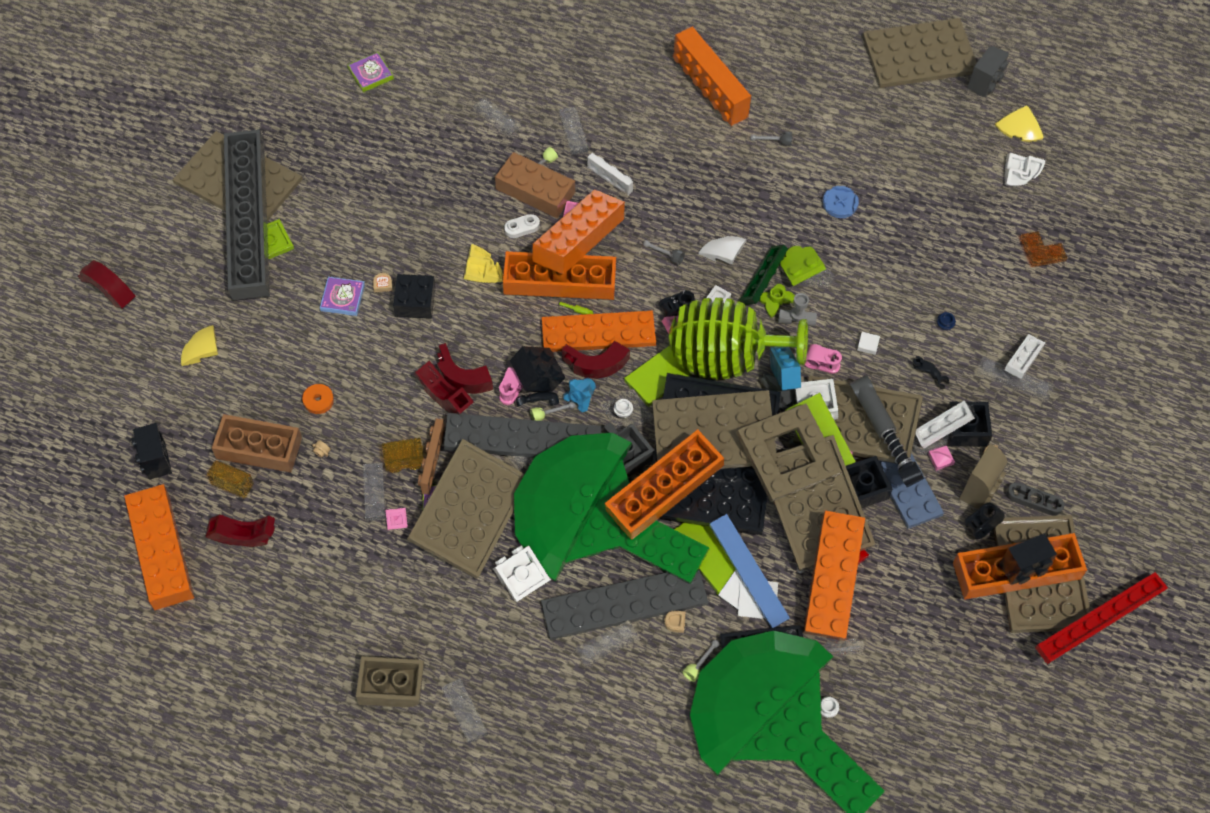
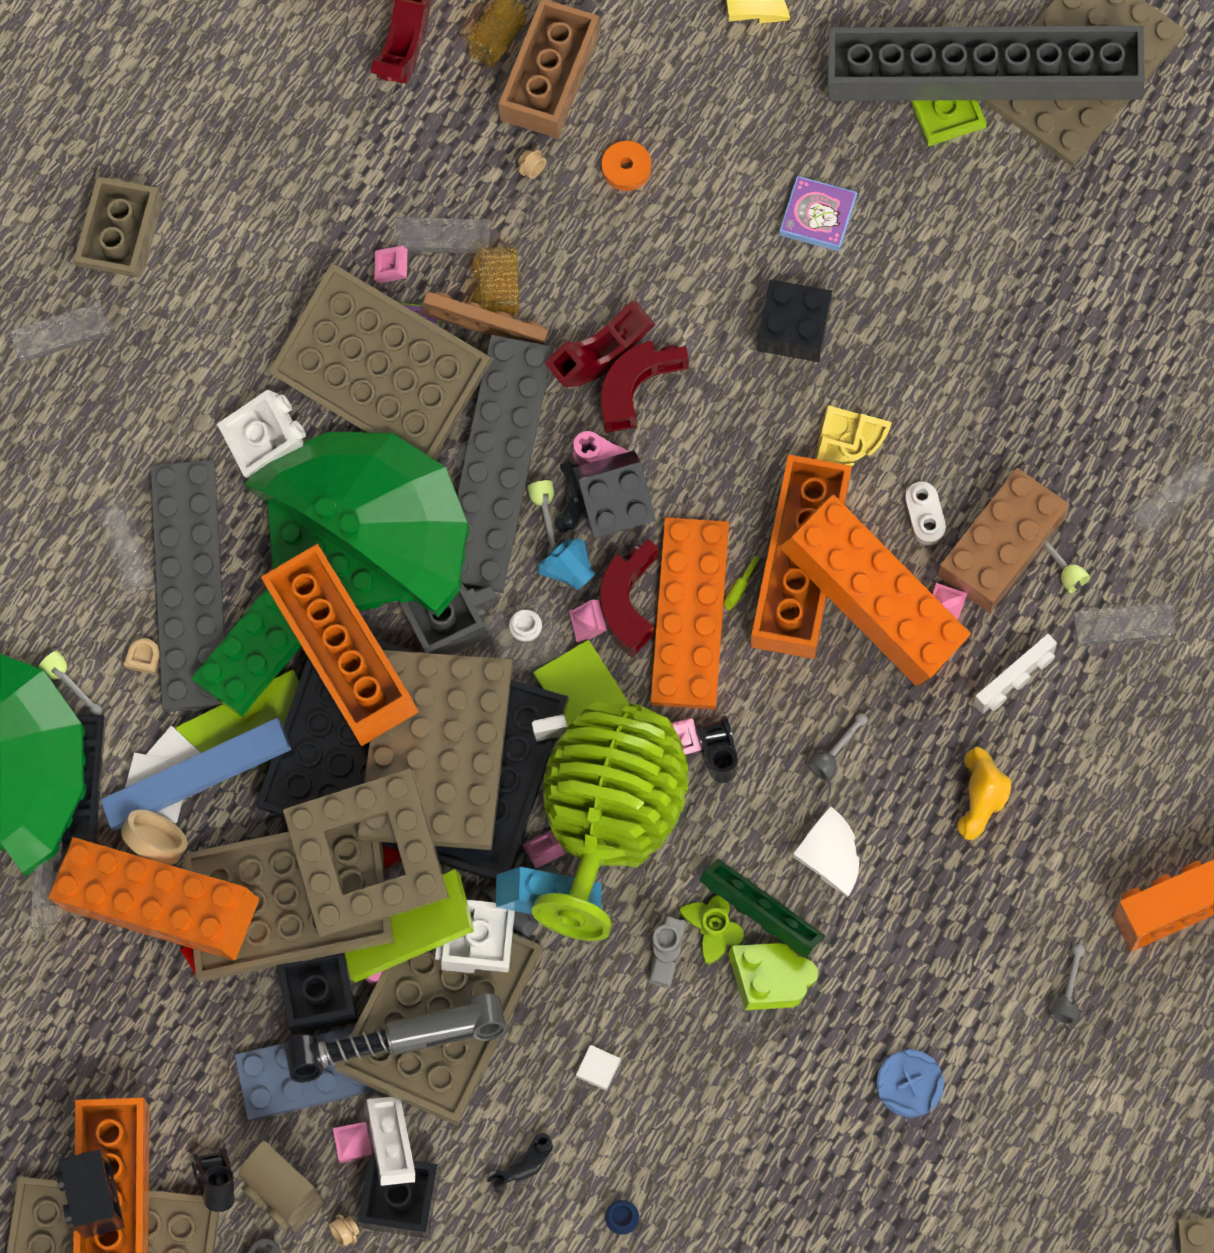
camera: 105 degrees right, 10 degrees up
(382, 283) = (837, 277): tan tile -> none
(613, 379) = (588, 621): none -> bright pink tile
(679, 175) = (987, 793): none -> yellow head
(690, 374) = (549, 727): none -> white tile
(719, 292) = (726, 821): white plate -> none
(754, 380) = (543, 849): none -> bright pink tile
(794, 585) = (154, 837): none -> tan piece
(821, 359) = (576, 972): bright pink piece -> none

